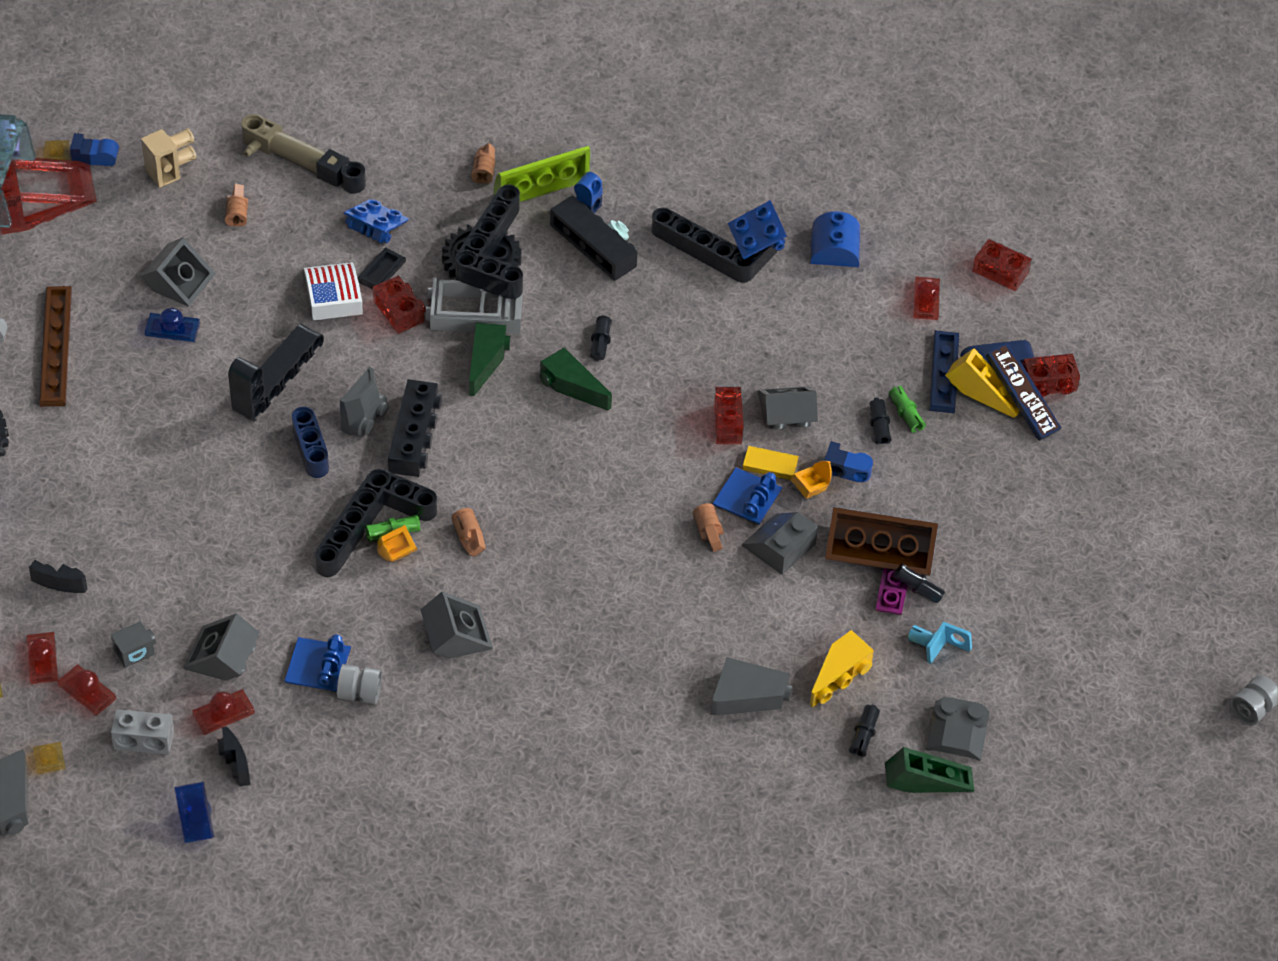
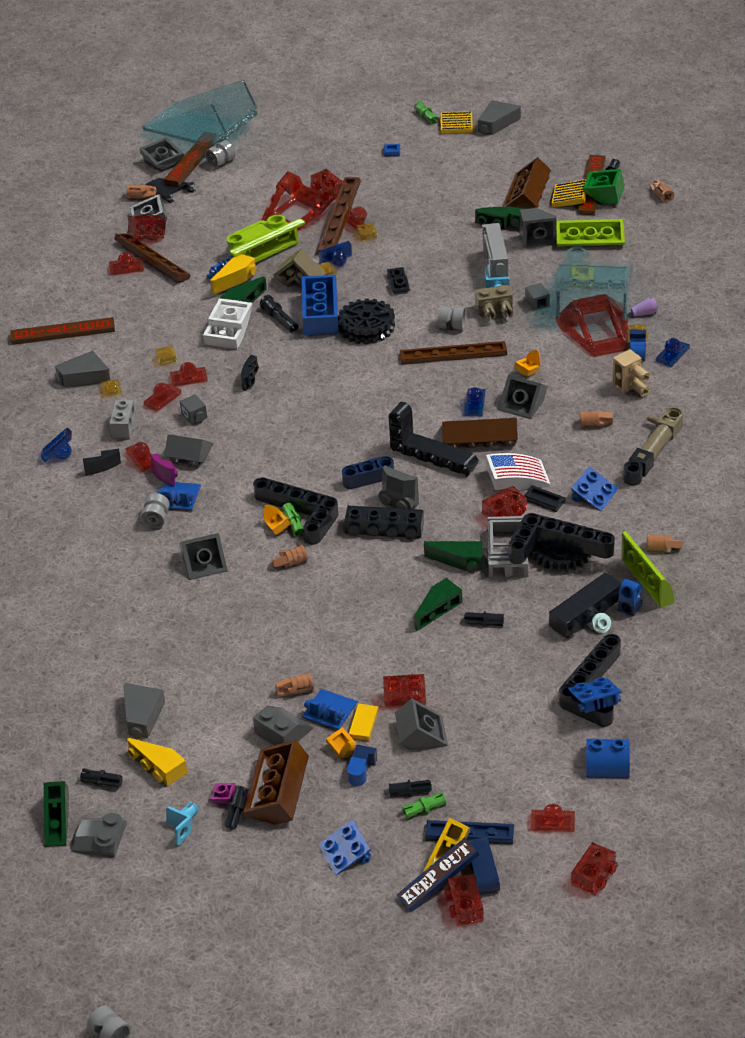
camera: 95 degrees right, 10 degrees down
(108, 263) = (529, 364): none -> light orange plate
(110, 121) = (673, 352): none -> clear blue tile
(242, 319) = (480, 431): none -> reddish brown slope
(277, 672) = (163, 469): none -> magenta slope
(975, 481) = (345, 847): none -> hinge

